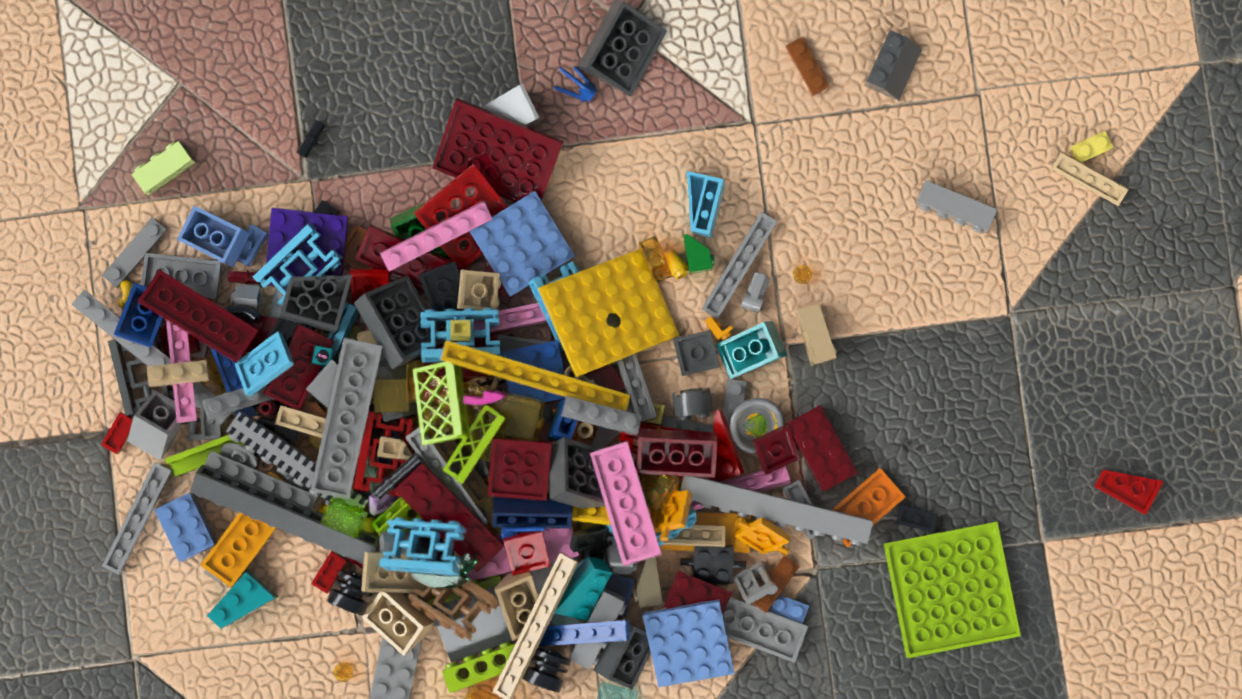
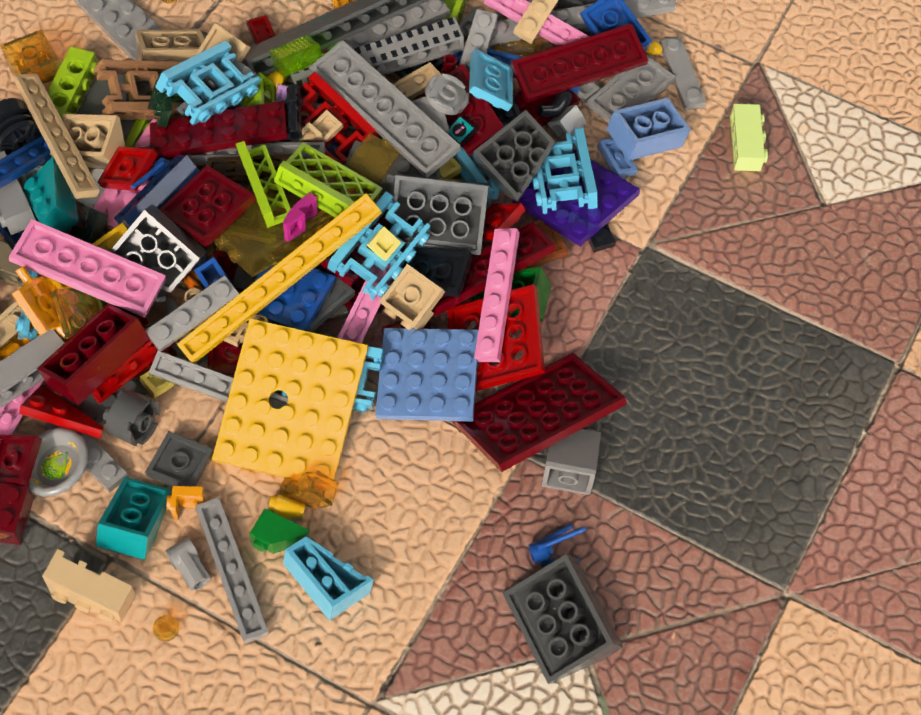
camera: 120 degrees right, 25 degrees down
(242, 277) = (593, 133): dark red axle -> none
(302, 382) = (447, 94): none -> light grey tile
(311, 139) = (684, 270): black pin -> none
(350, 593) = (232, 19): black wheel -> none

